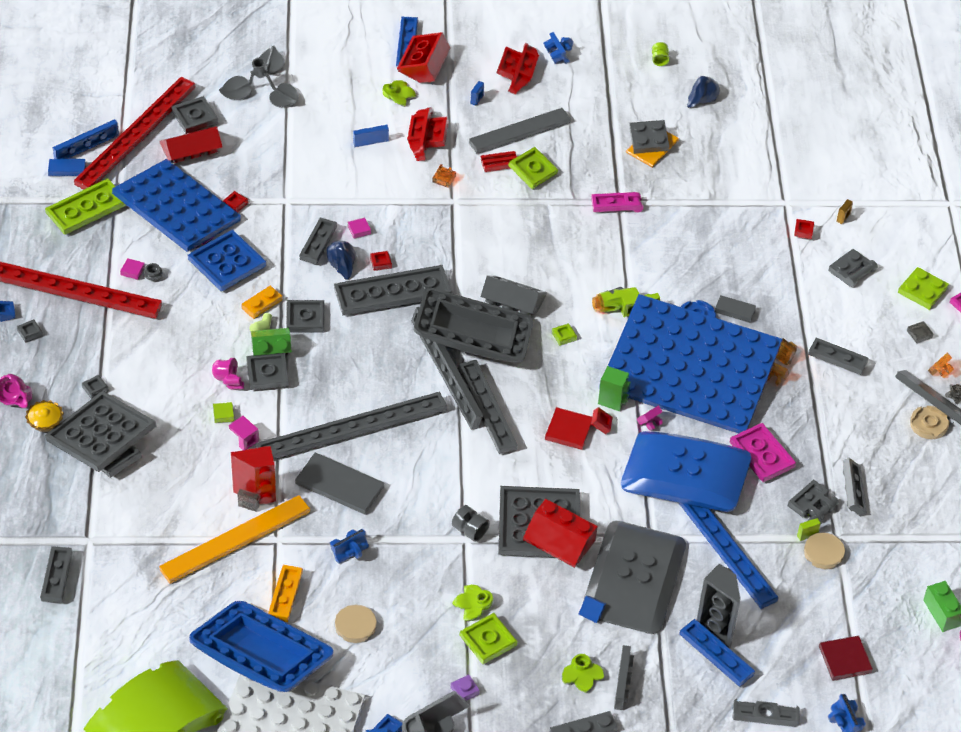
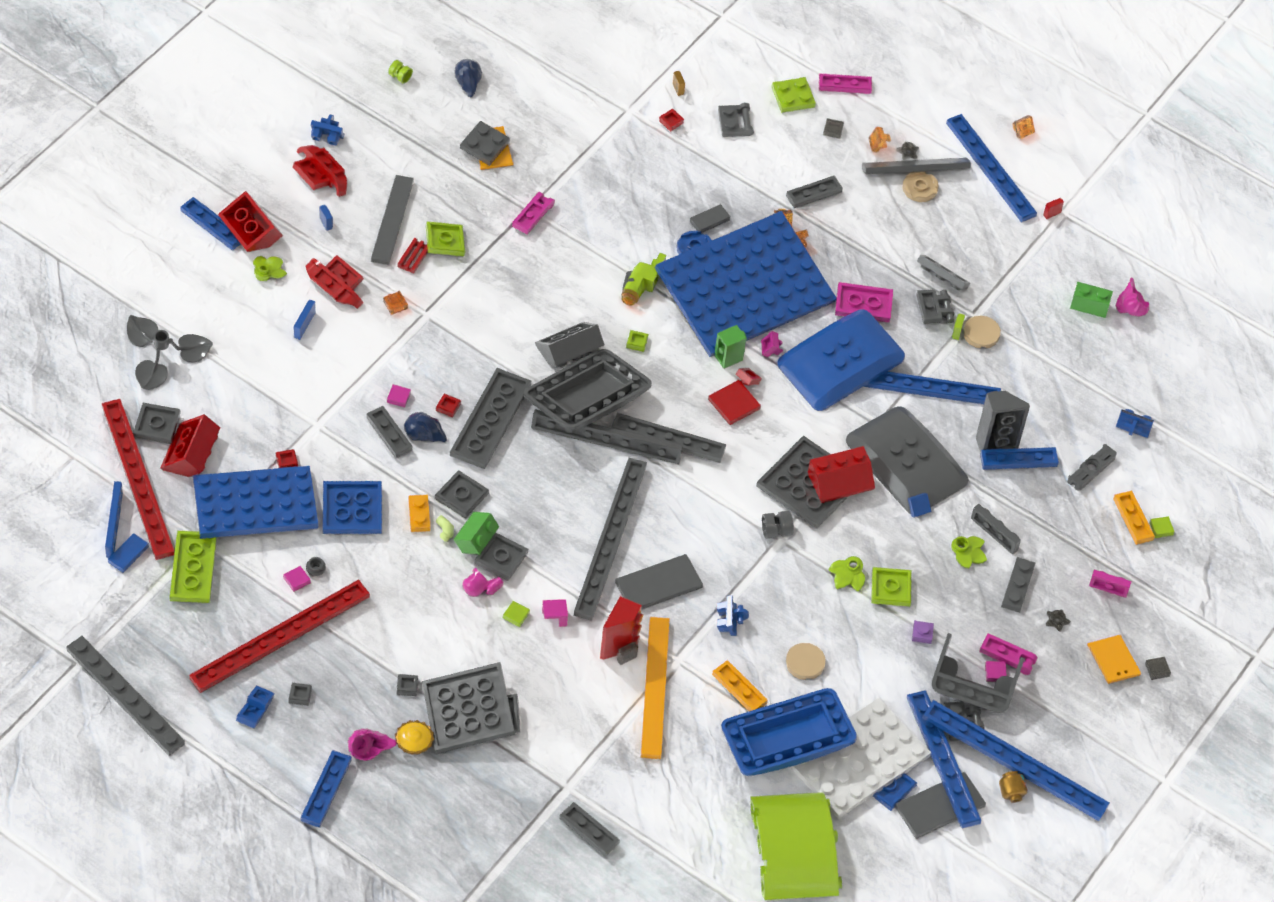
camera: 55 degrees left, 5 degrees up
(845, 658) = (1083, 388): dark red tile -> none

